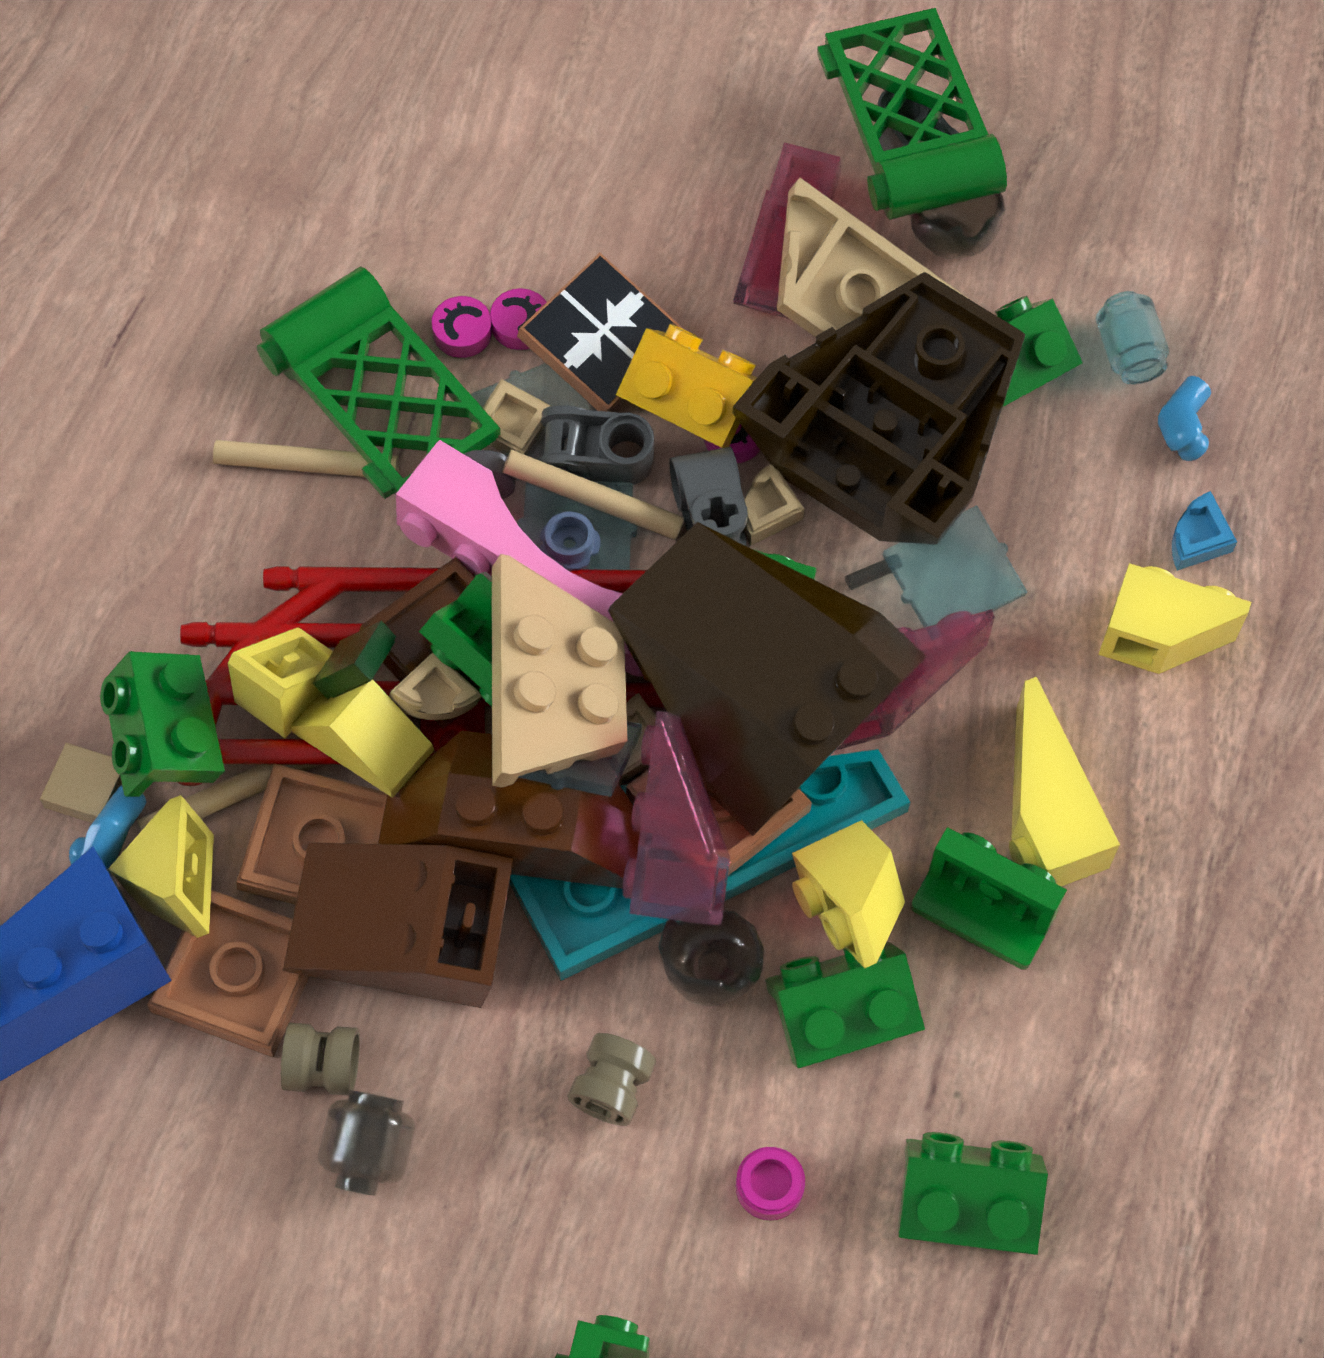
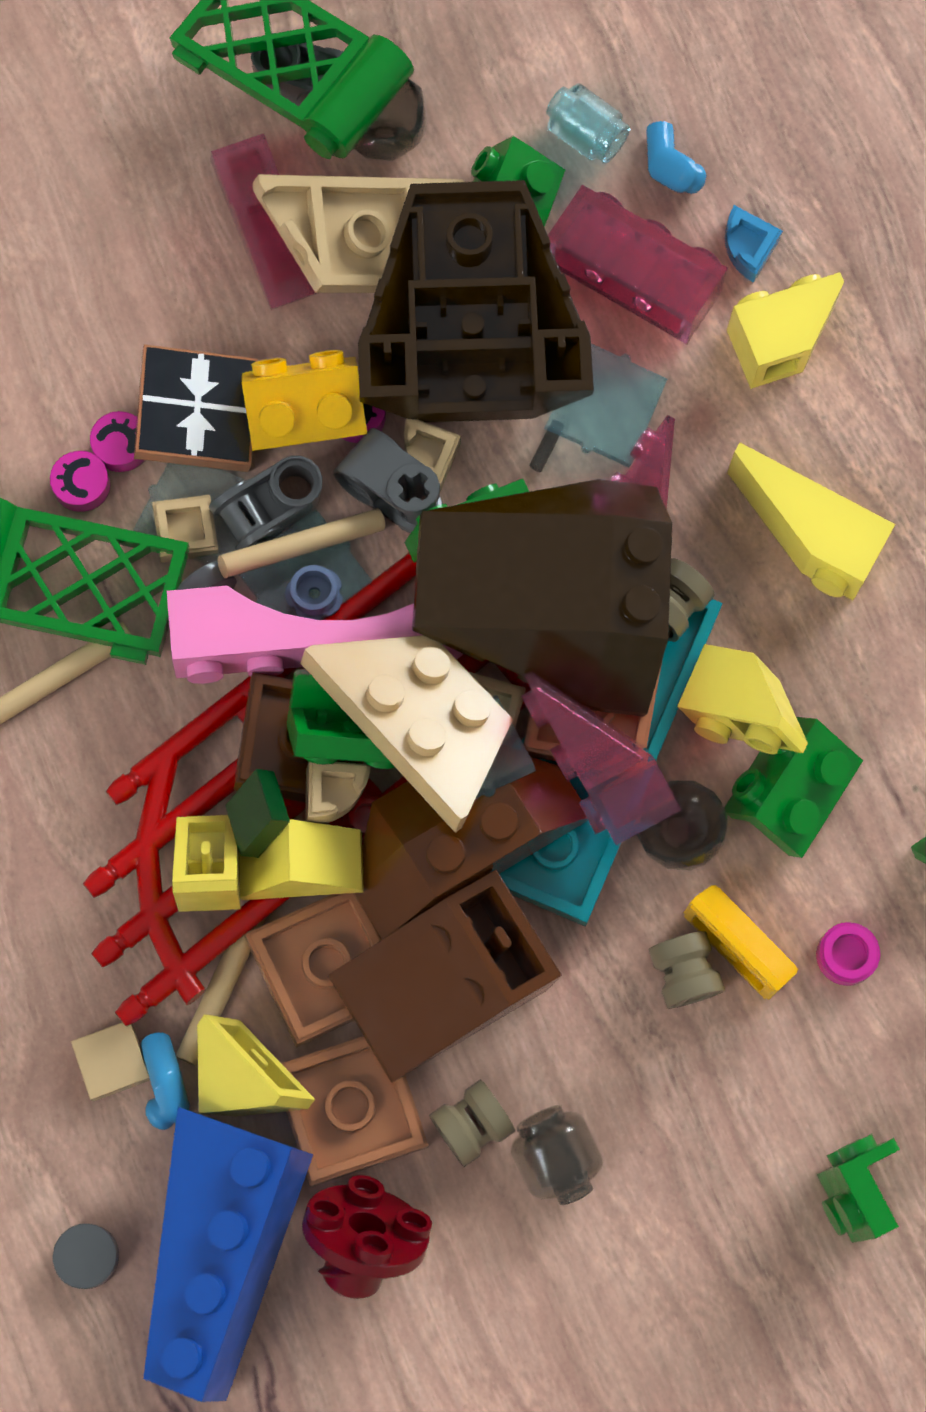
camera: 40 degrees left, 10 degrees up
(148, 1073) = (364, 1235): none -> dark red plate
(160, 721) = (144, 973): green bracket -> none
(684, 1095) = (740, 941): none -> yellow slope
(864, 761) = (688, 594): none -> dark tan wheel
(988, 898) = (833, 632): green bracket -> none
(1077, 476) = (636, 263): none -> clear pink brick

